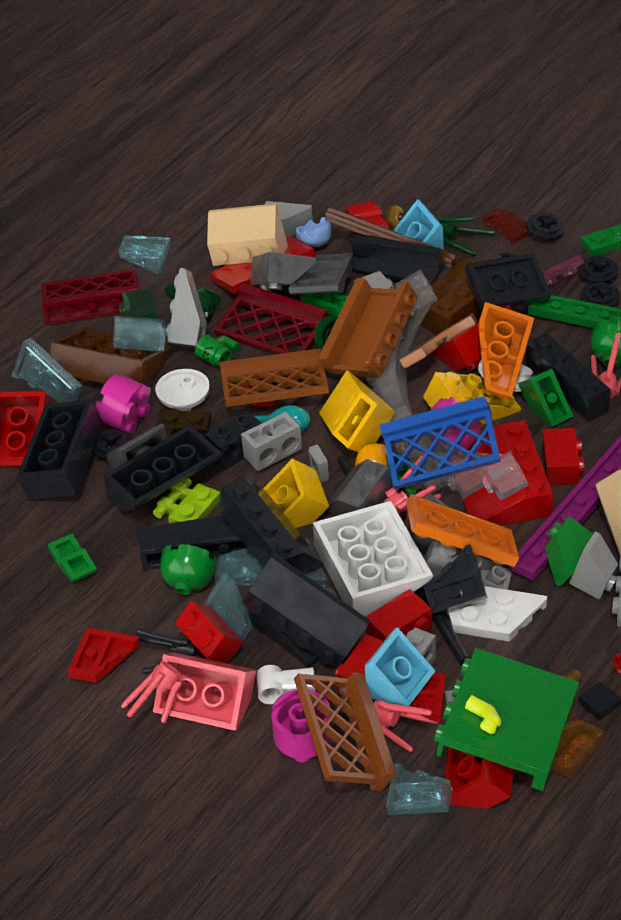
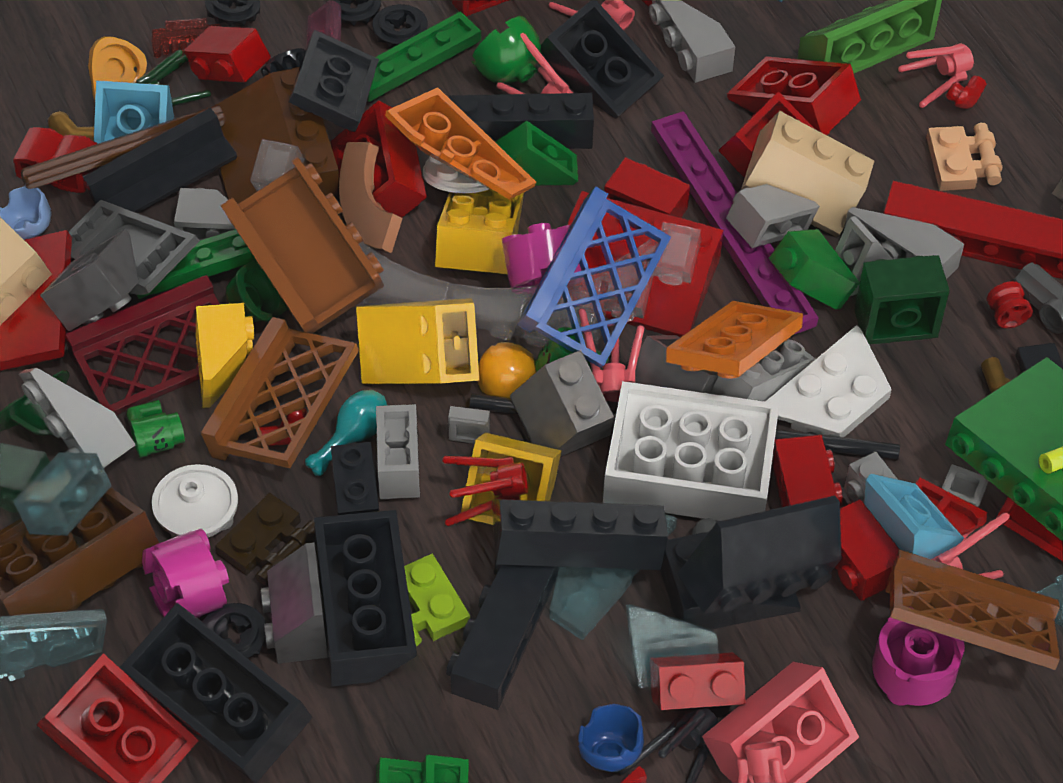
camera: 65 degrees left, 10 degrees up
(147, 616) = (611, 738): none -> blue hair
(187, 568) = (563, 655): green cylinder -> none
(273, 334) = (222, 345): none -> yellow slope
(274, 682) = (827, 638): white piece -> none
(277, 486) = (508, 480): none -> red plant
(451, 203) = (115, 61): none -> light orange piece
(457, 584) = (804, 389): black wing -> none
(495, 238) = (227, 54): none -> red brick
(575, 599) = (901, 299): none -> dark green brick
(590, 509) = (768, 213): none -> light grey slope

